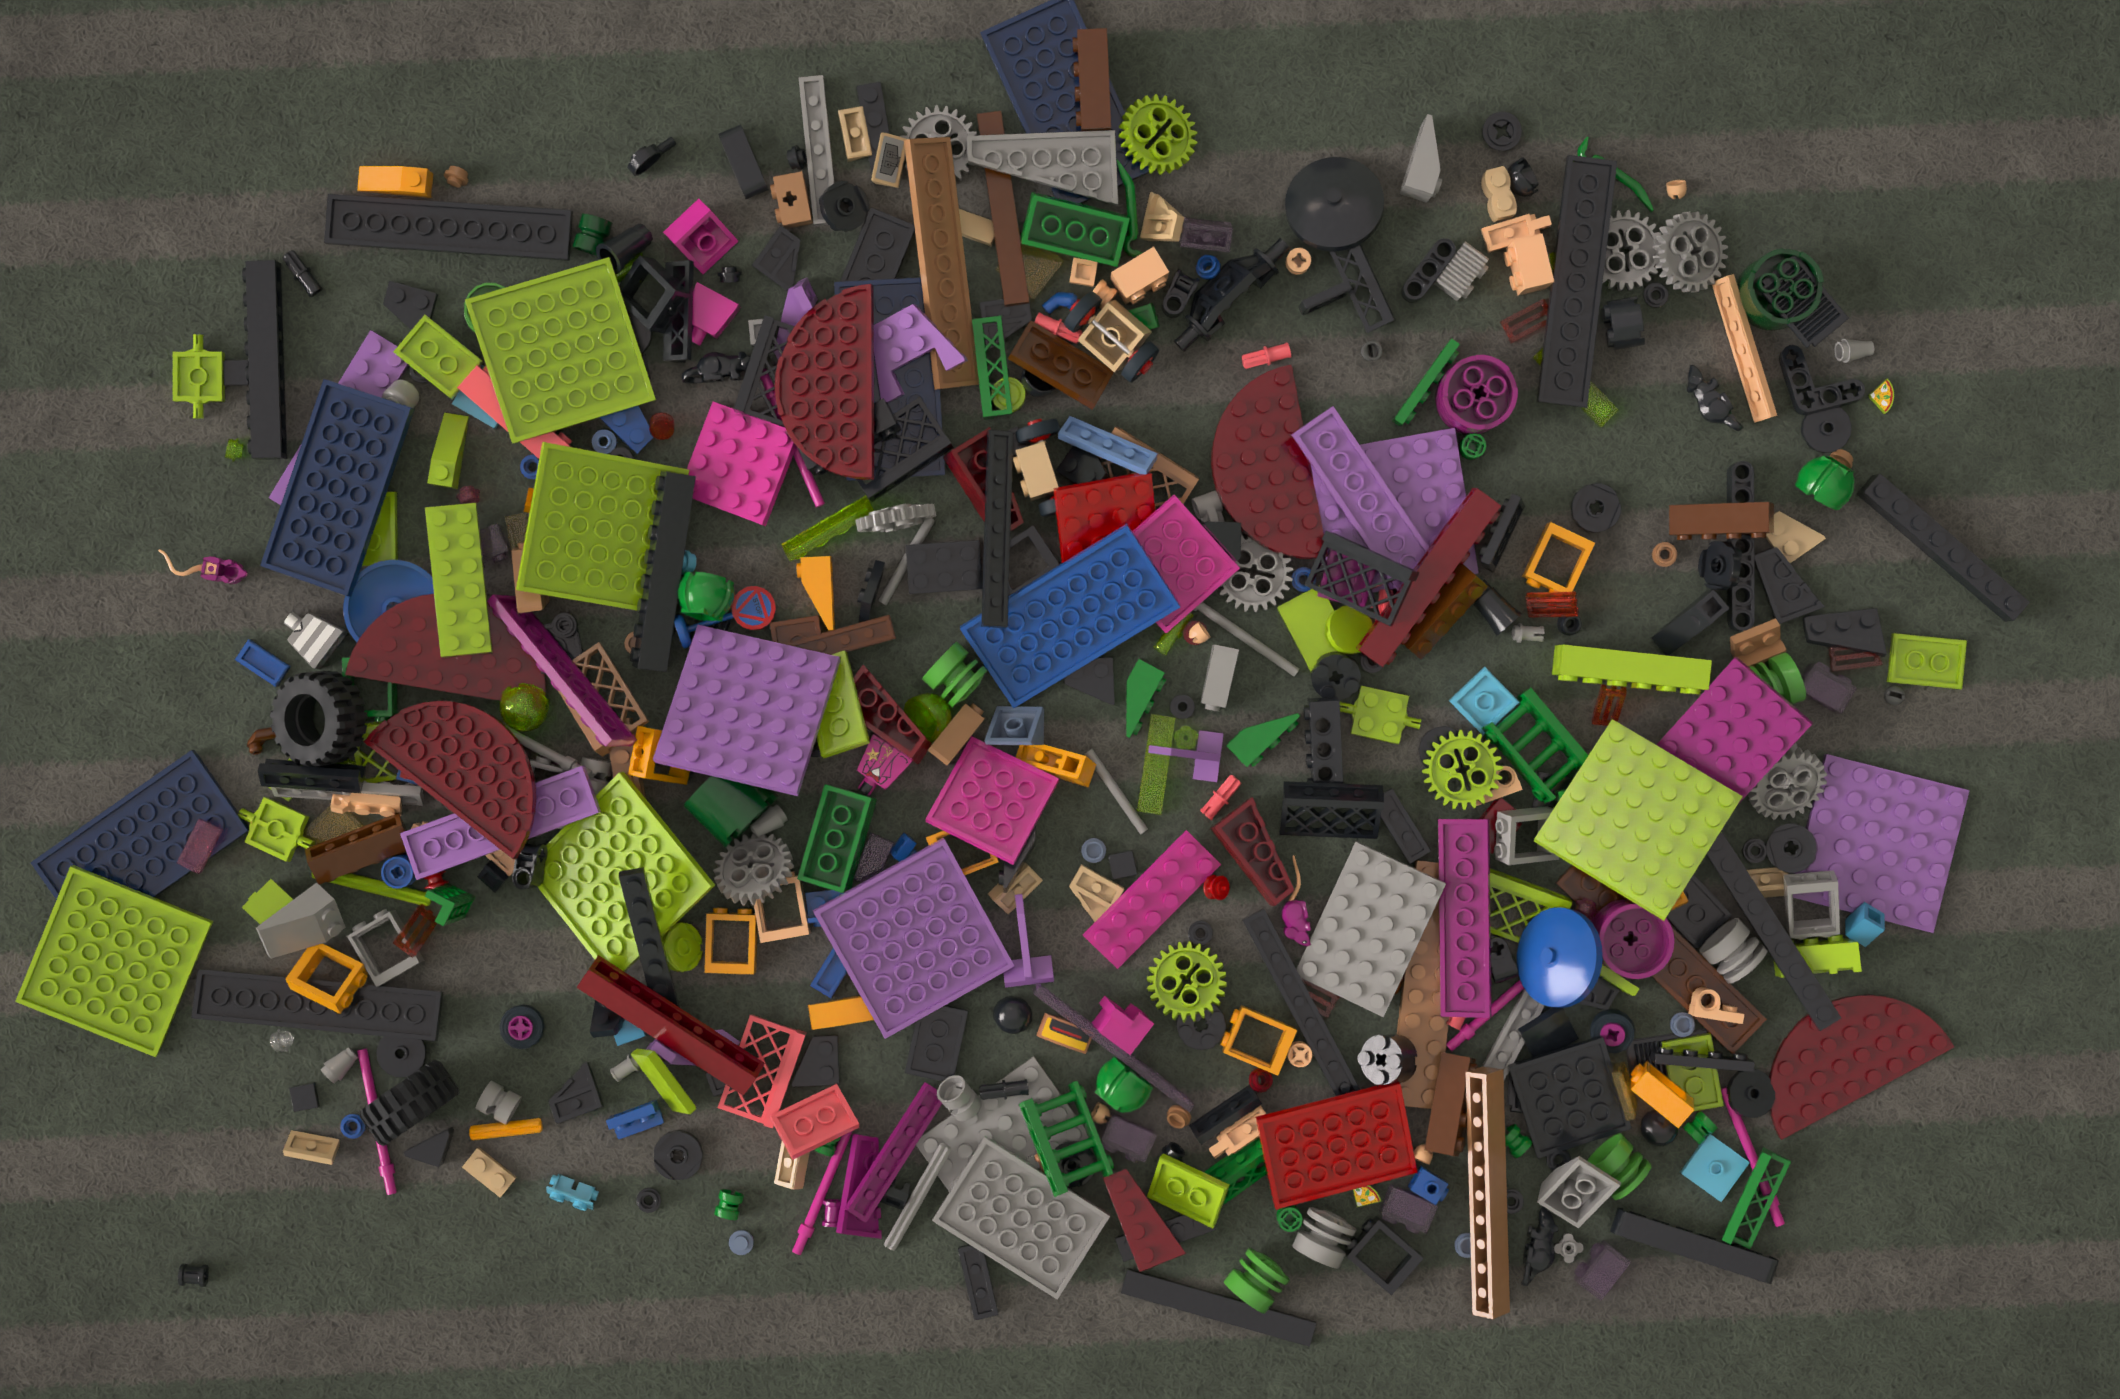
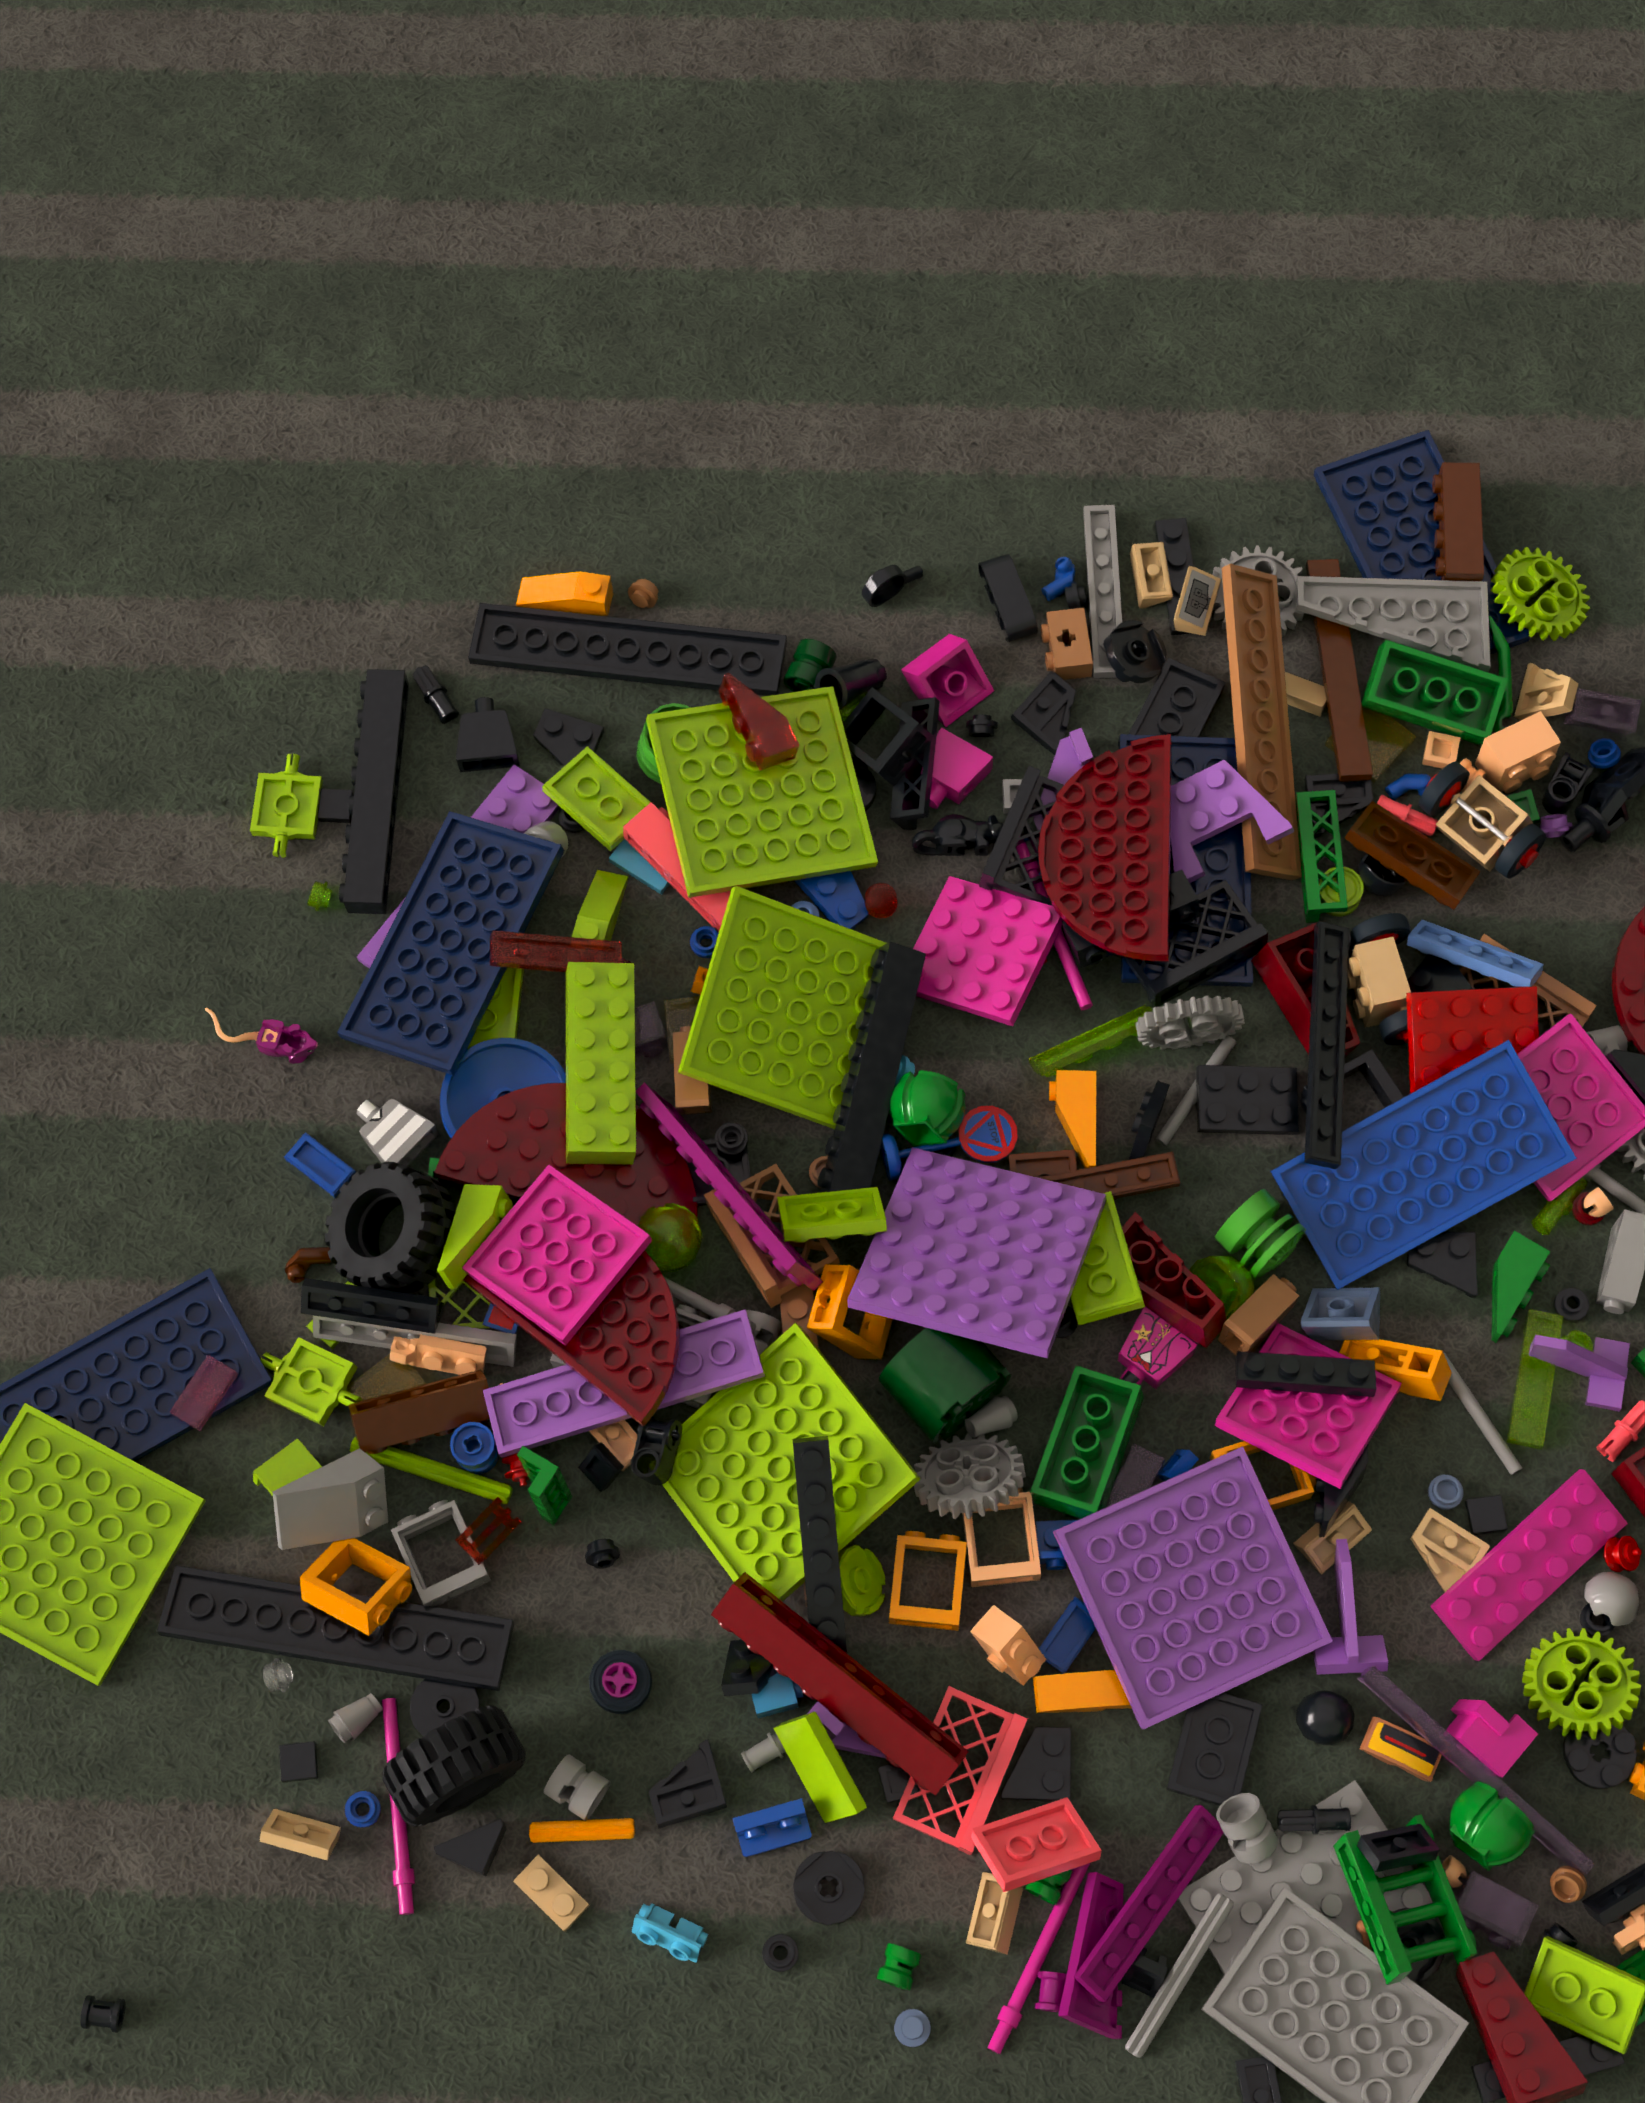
camera: 10 degrees right, 20 degrees down
(346, 310) = (485, 739): none -> black torso
(379, 716) = (475, 1218): none -> lime slope
(415, 496) = (549, 951): none -> clear red plate
(441, 734) = (557, 1254): none -> dark pink plate
(500, 938) = (602, 1553): none -> black plate
(556, 304) = (763, 727): none -> clear red slope
(638, 689) = (831, 1214): none -> lime plate
(787, 140) = (1063, 577): none -> blue arm
(788, 987) = (1008, 1645): none -> light nougat brick
(989, 778) = (1305, 1373): none -> black plate
(1059, 1108) = (1398, 1847): none -> black plate
(1169, 330) = (1554, 825): none -> medium lavender plate
(1208, 919) = (1613, 1596): none -> light grey hair

